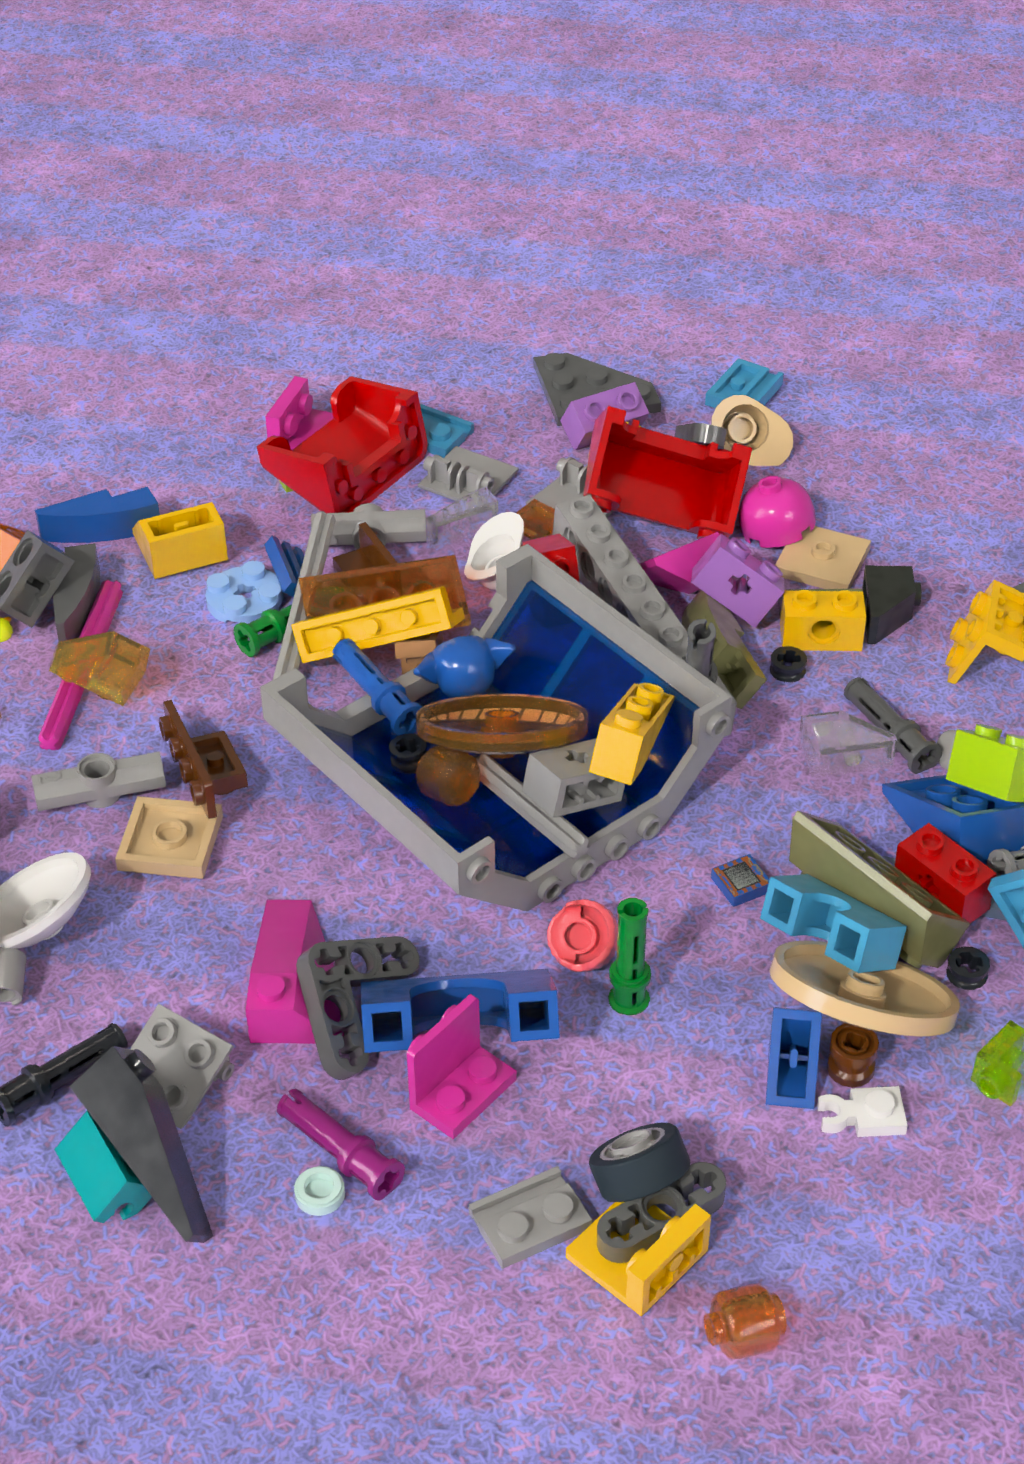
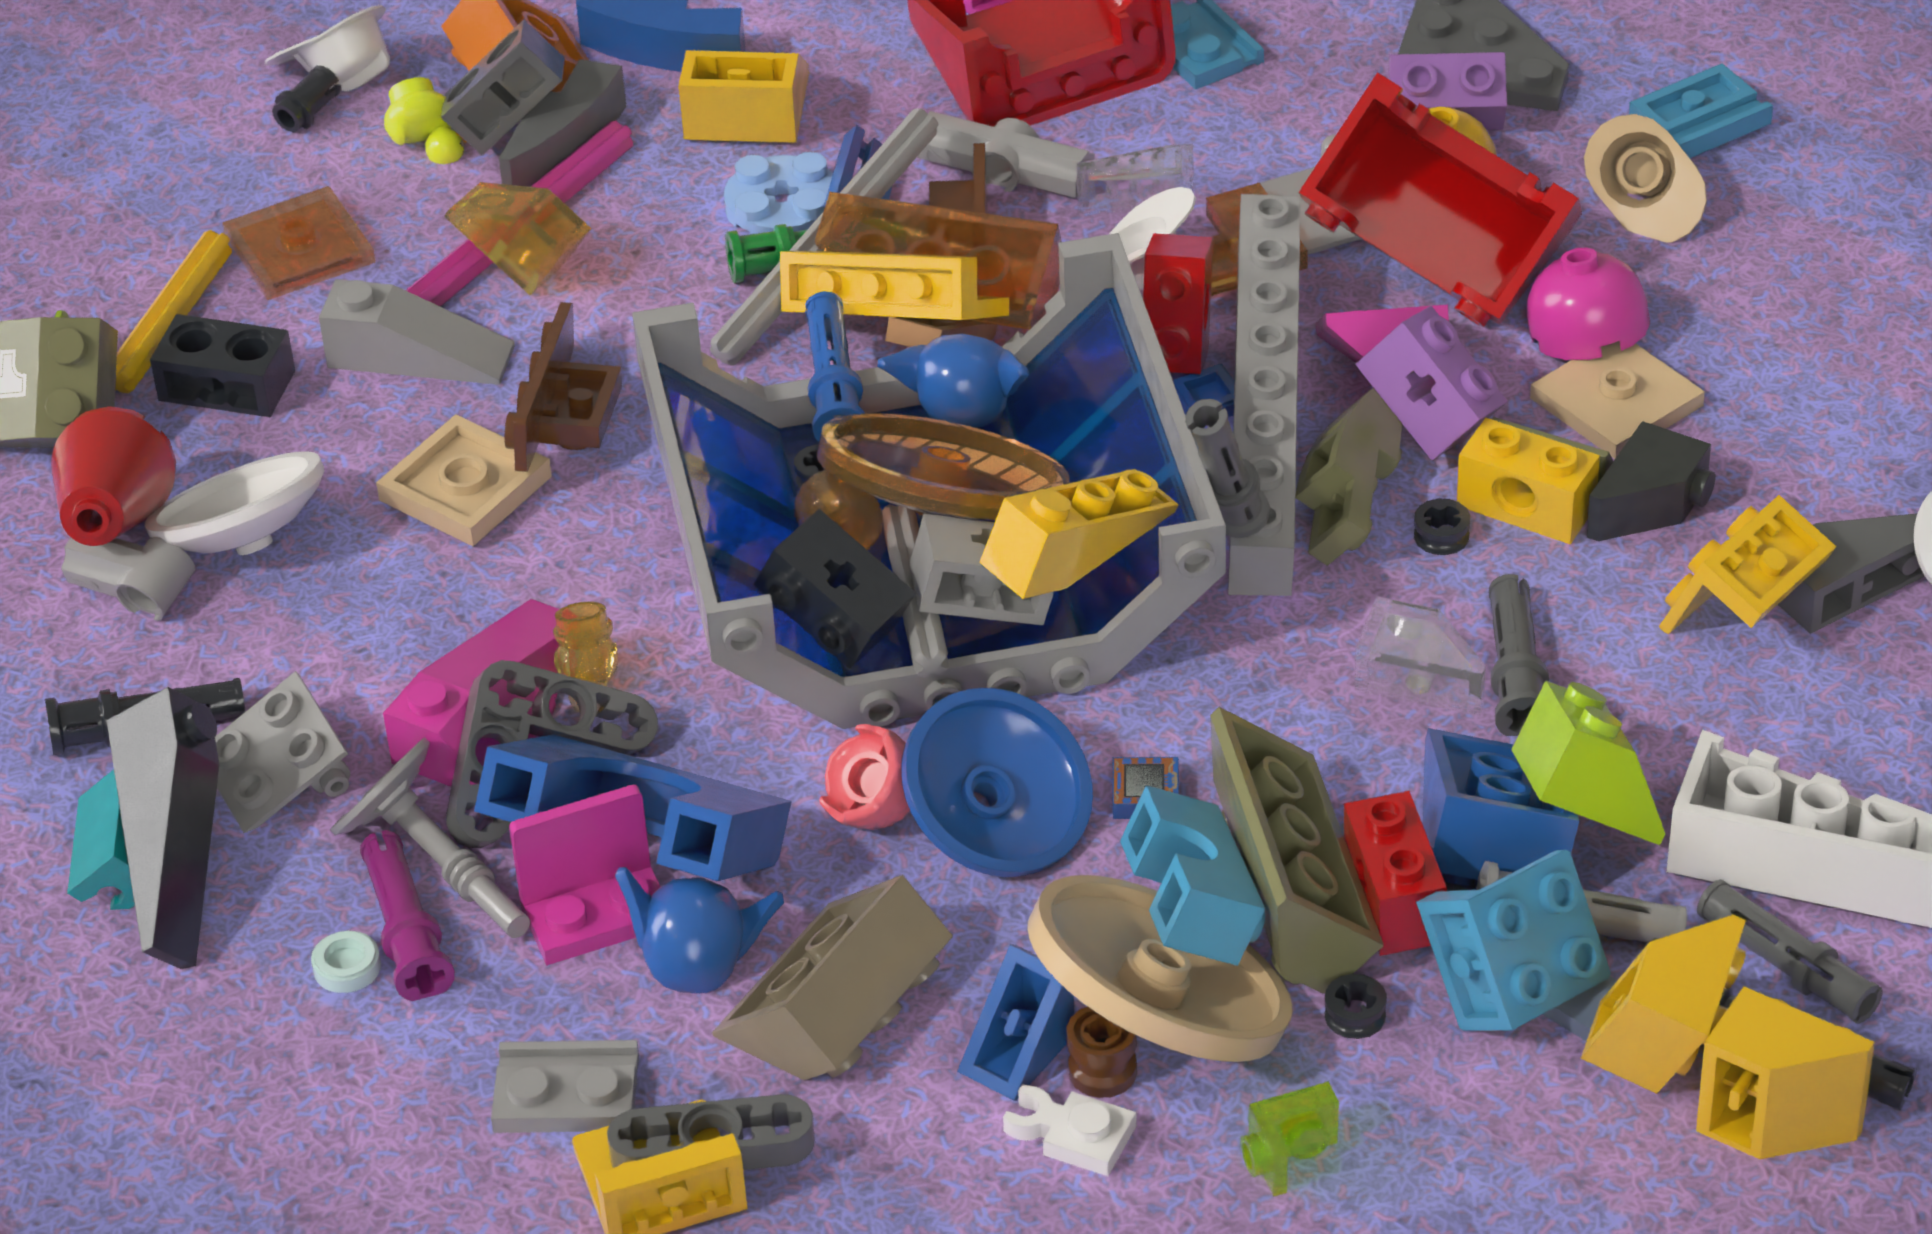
camera: 30 degrees right, 0 degrees up
(58, 748) = (402, 334): none -> light grey slope
(98, 781) = (424, 379): light grey piece -> none
(285, 1068) = (460, 867): none -> light grey dish
(337, 915) = (585, 644): none -> clear yellow animal
(463, 473) = (1202, 115): light grey hinge -> none
(508, 817) = (834, 588): none -> black brick
(544, 1077) = (693, 929): none -> blue piece
(630, 971) = (883, 840): green pin -> none
(639, 1162) = (721, 1067): black wheel -> none
(656, 1069) = (838, 981): none -> dark tan slope
(685, 911) = (1013, 757): none -> blue dish
(702, 434) = (1550, 162): dark grey beam -> none

